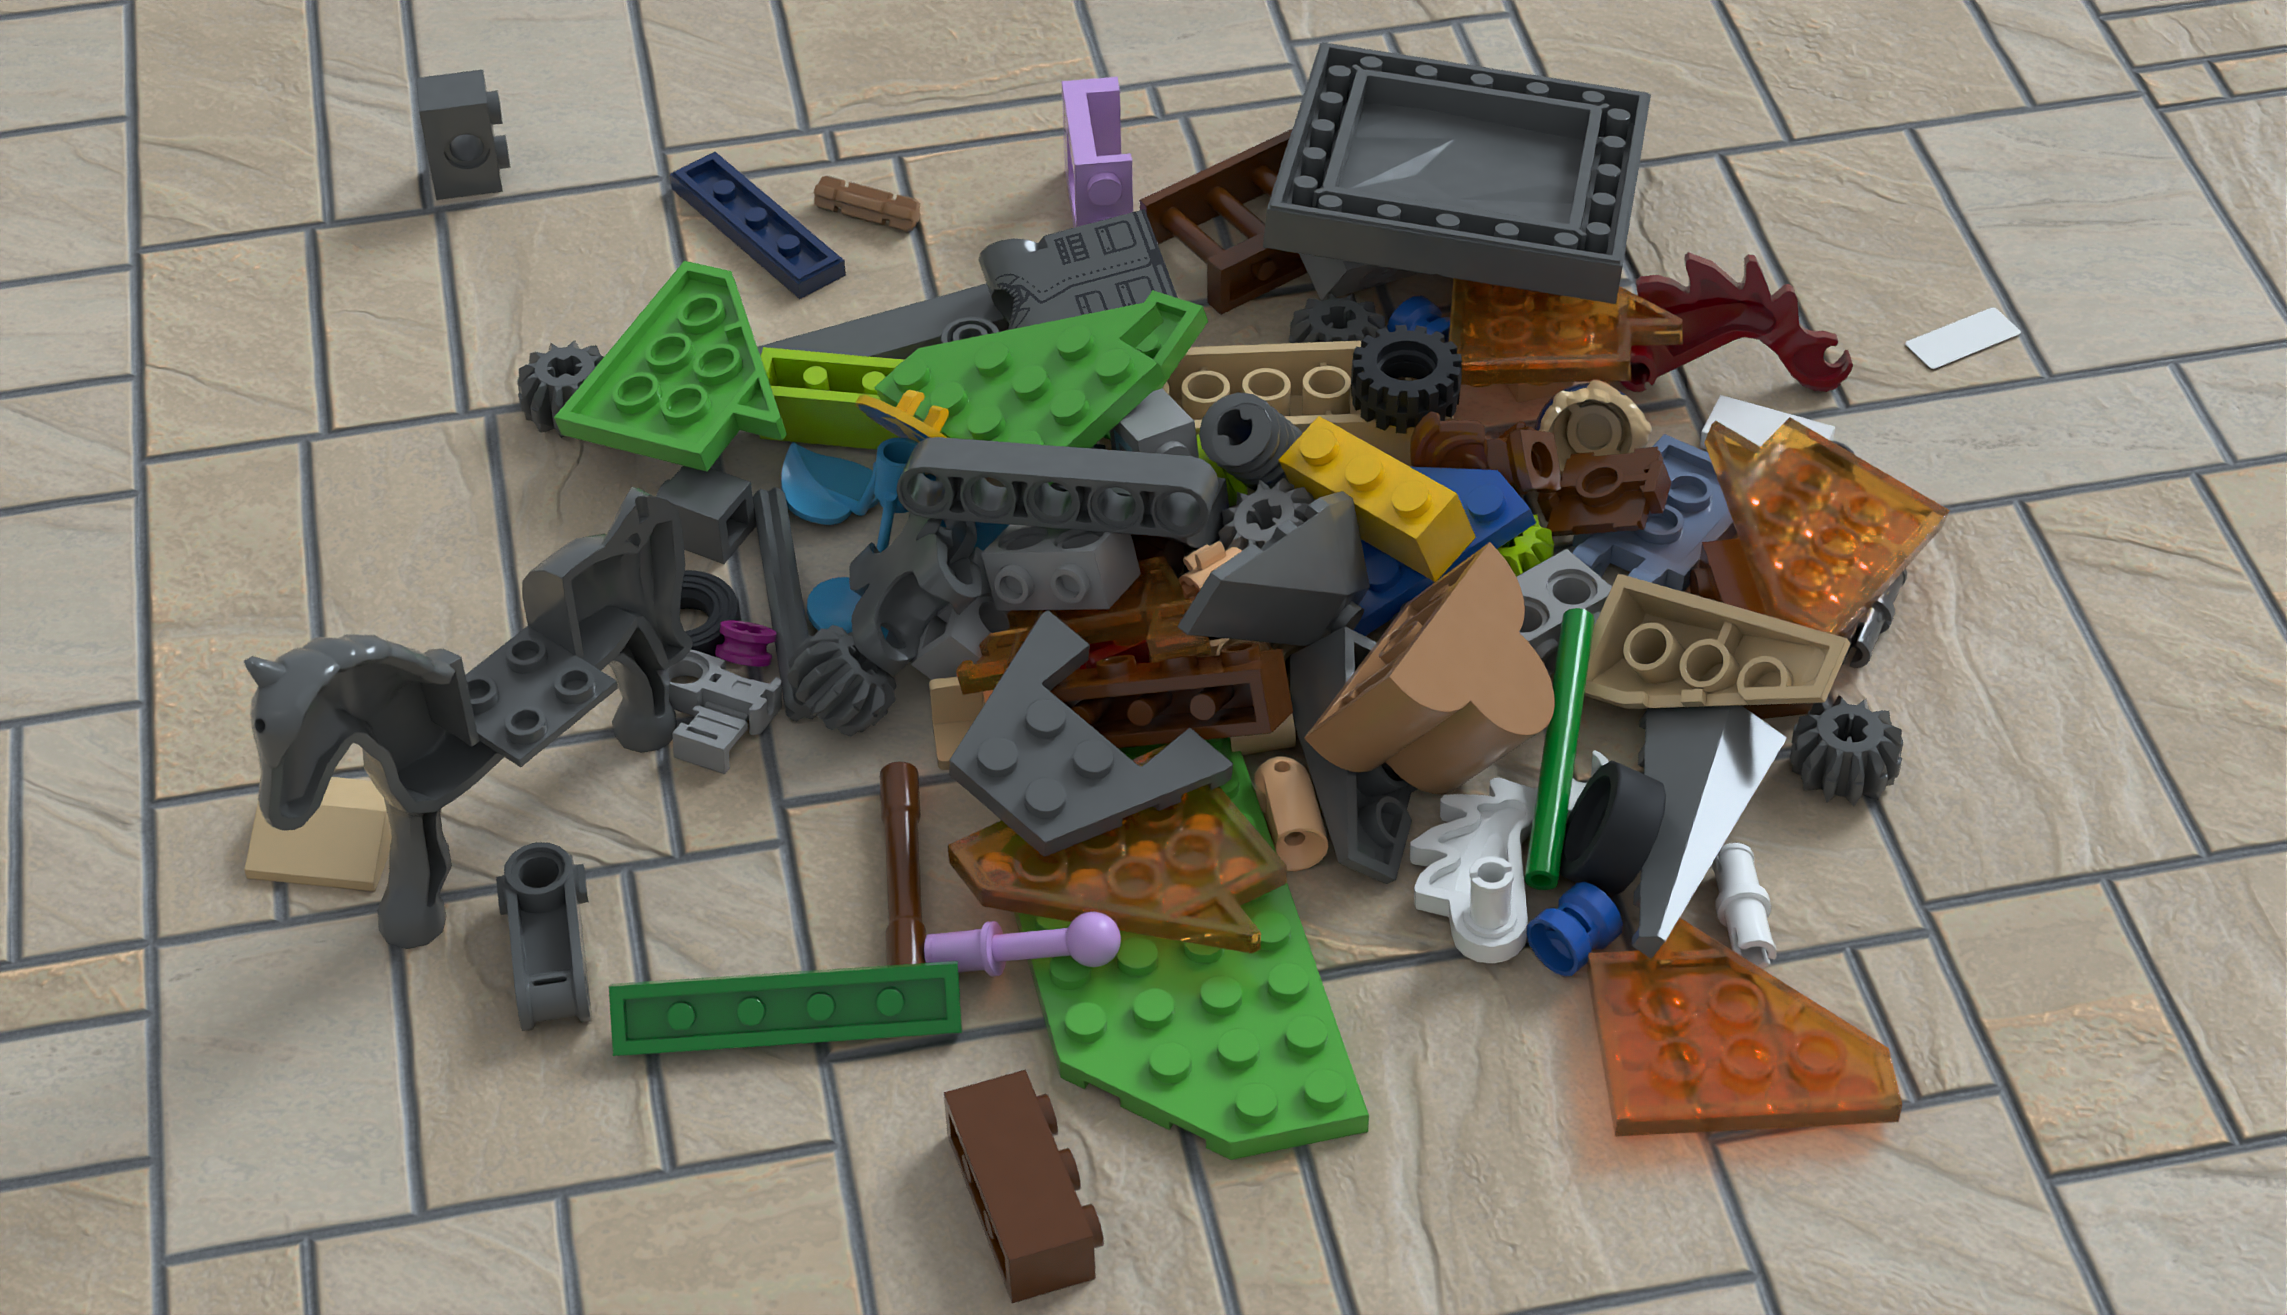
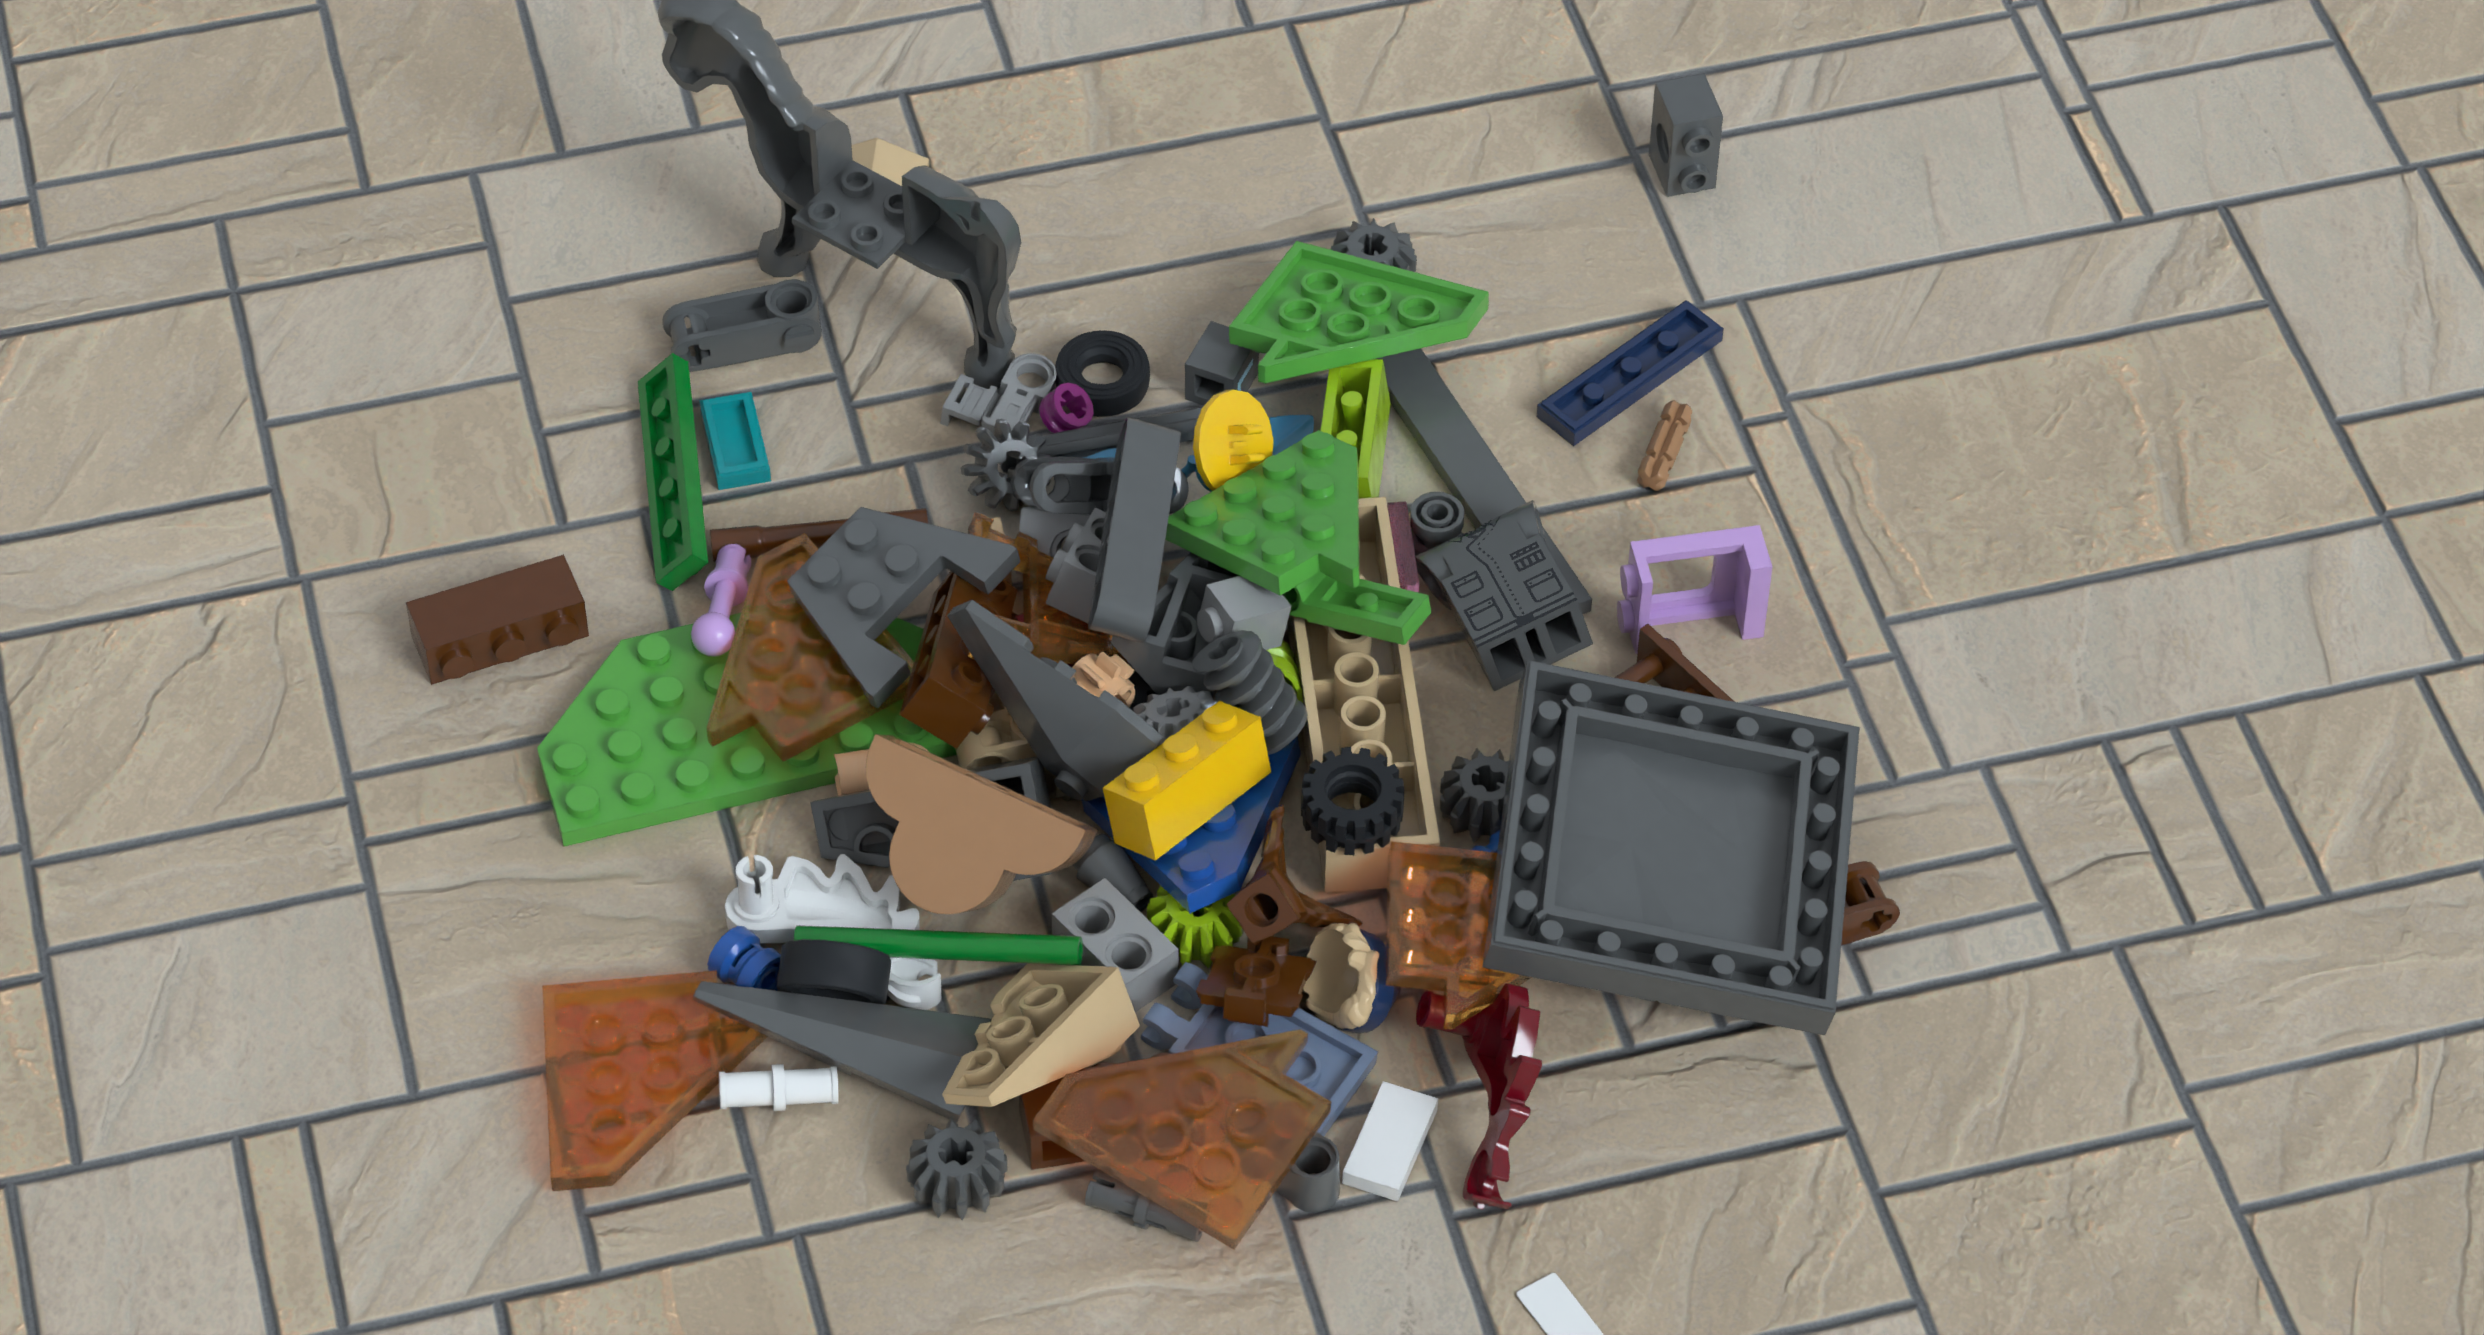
camera: 85 degrees right, 5 degrees up
(728, 951) = (735, 441): none -> teal tile

